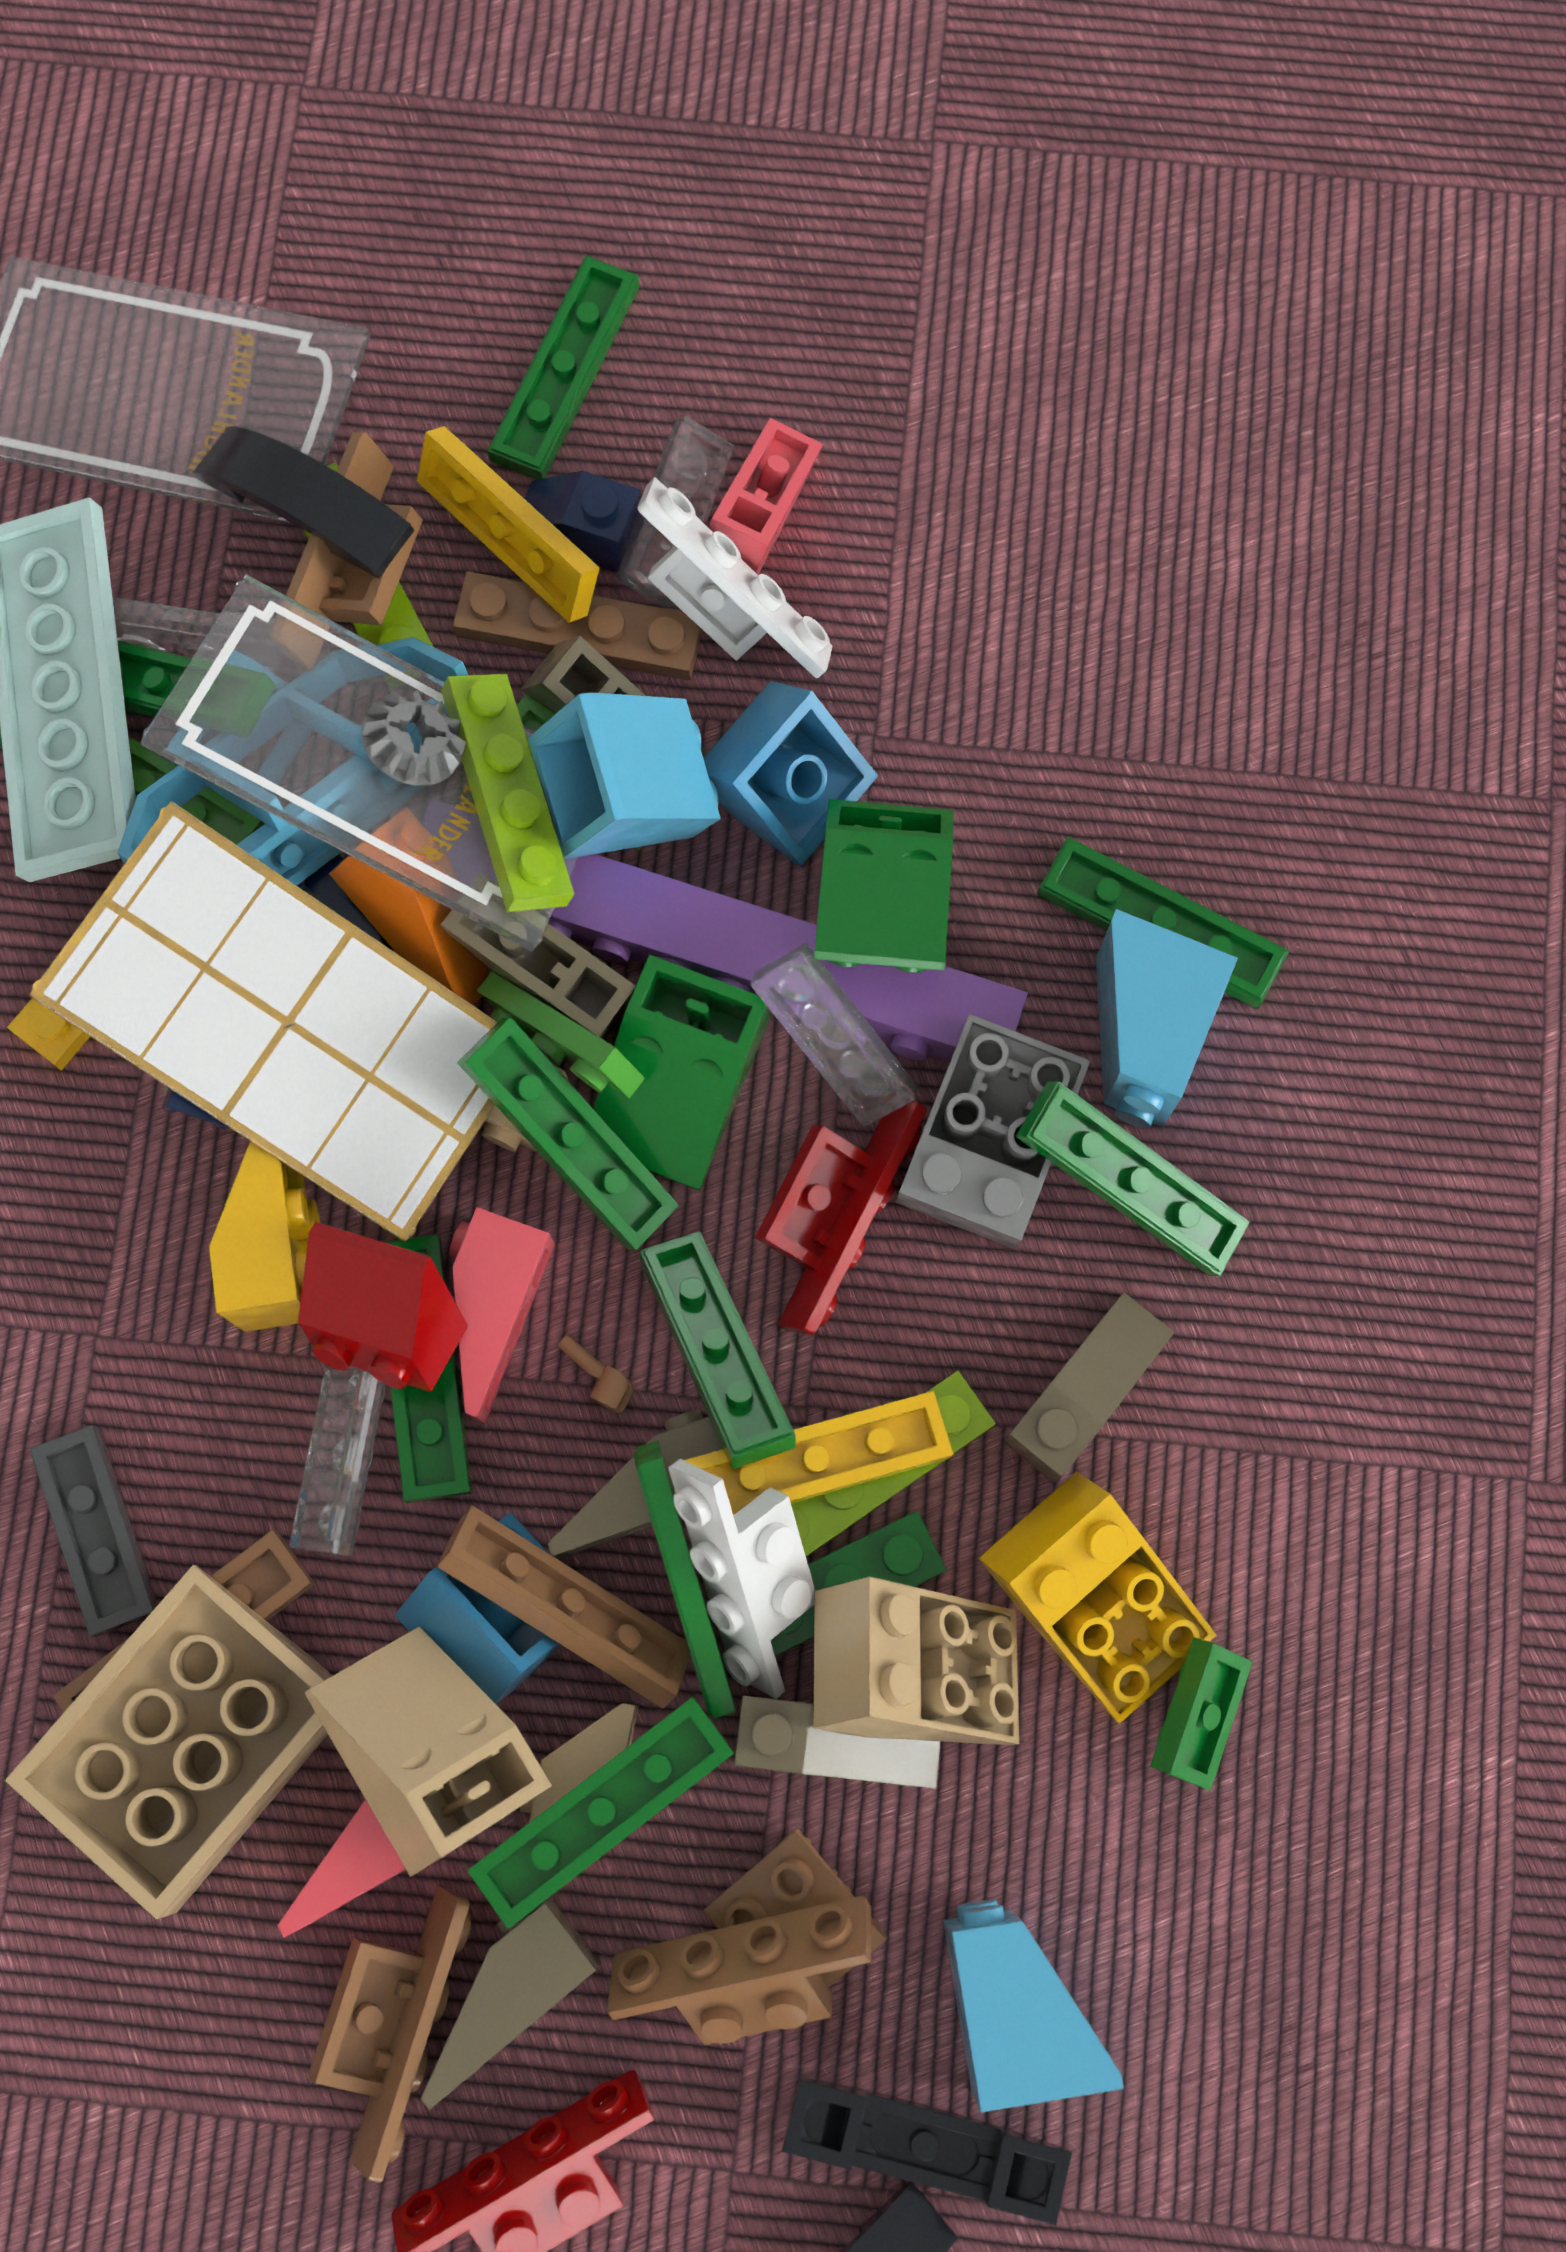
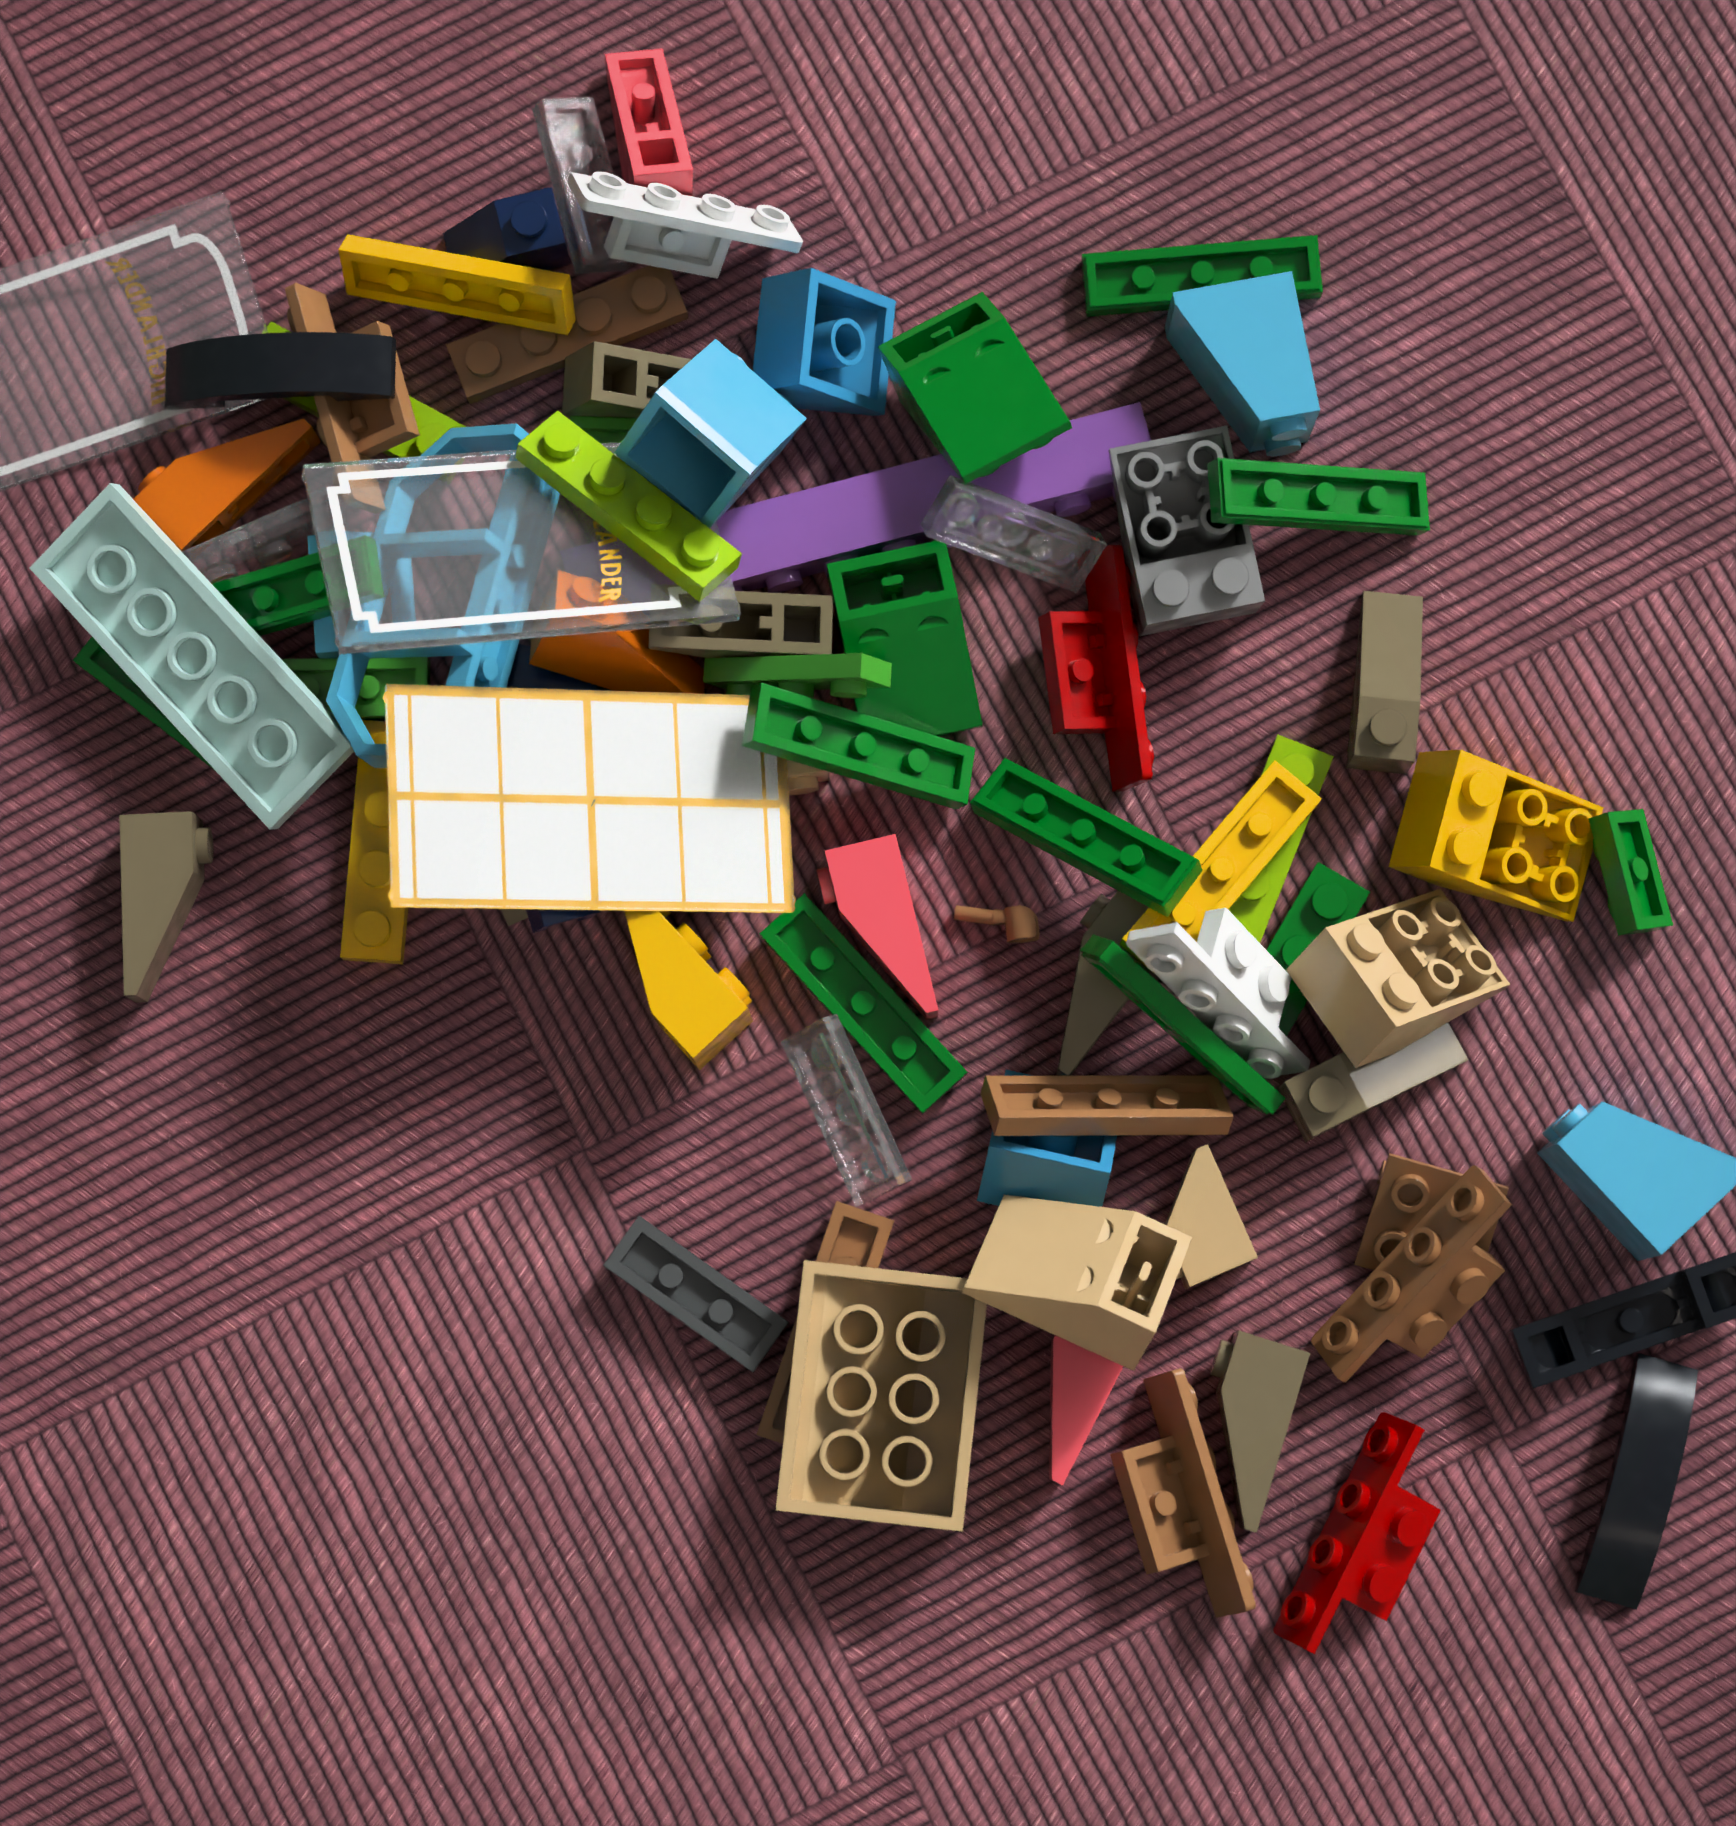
camera: 30 degrees left, 5 degrees up
(191, 564) = (215, 487): none -> orange slope
(377, 1309) = (811, 975): red slope -> none
(391, 746) = (525, 530): light grey gear -> none
(563, 368) = (401, 118): green tile -> none
(600, 1812) = (1239, 1233): green plate -> none

